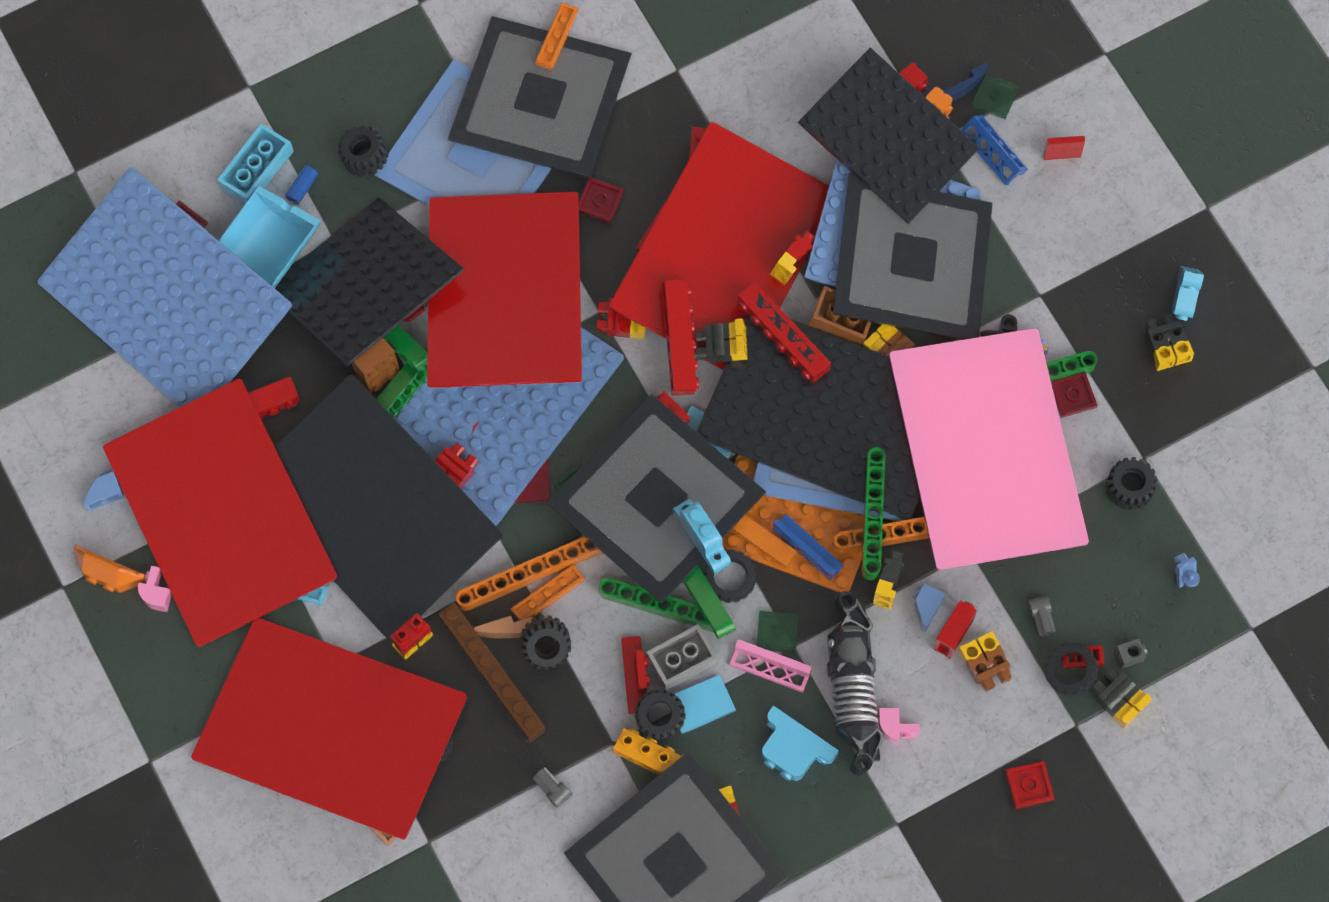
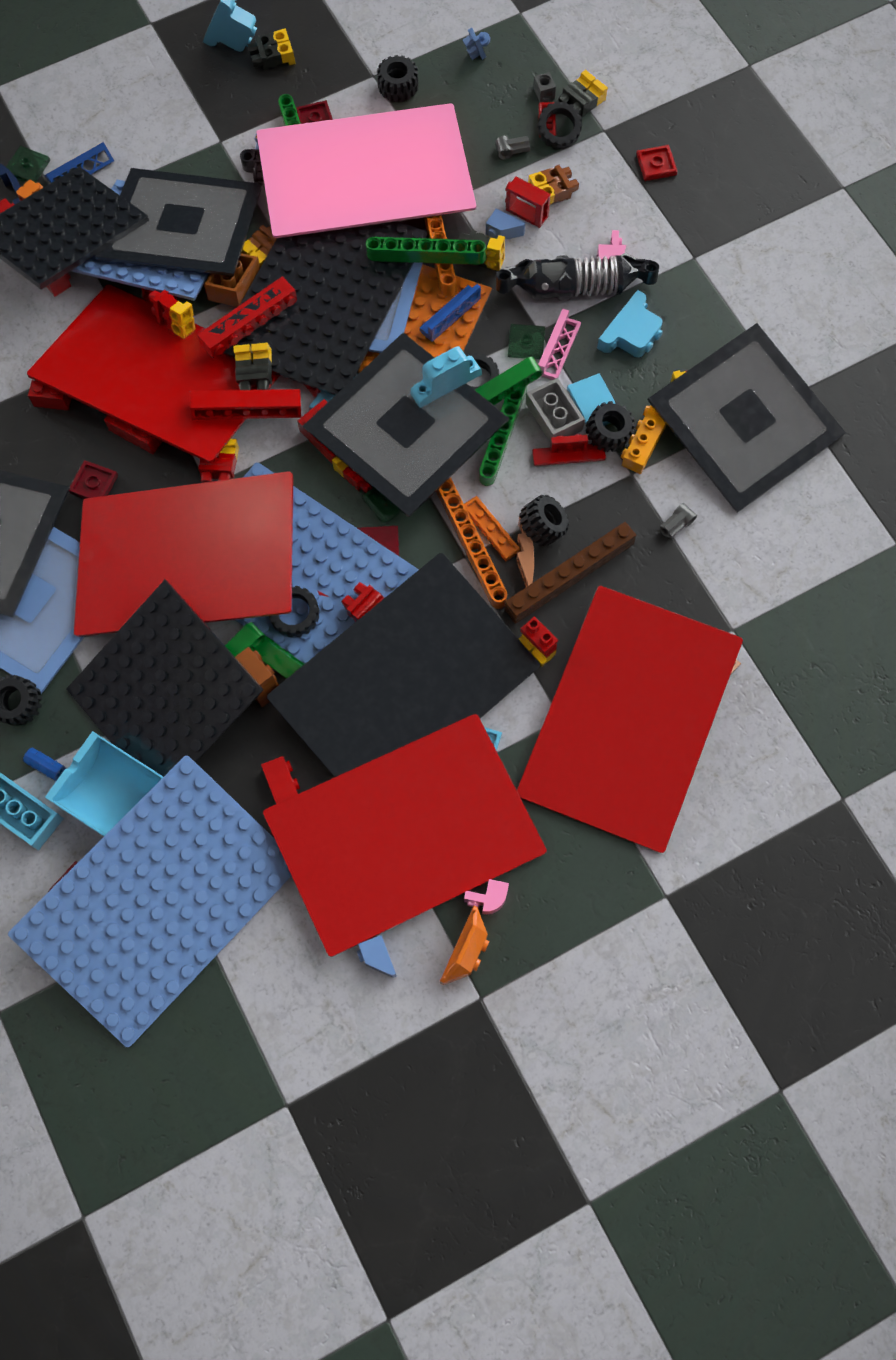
camera: 90 degrees left, 0 degrees up
(455, 417) = (305, 626): none -> black tyre
(765, 541) = (449, 339): orange tile -> none
(1064, 147) = (85, 109): red tile -> none

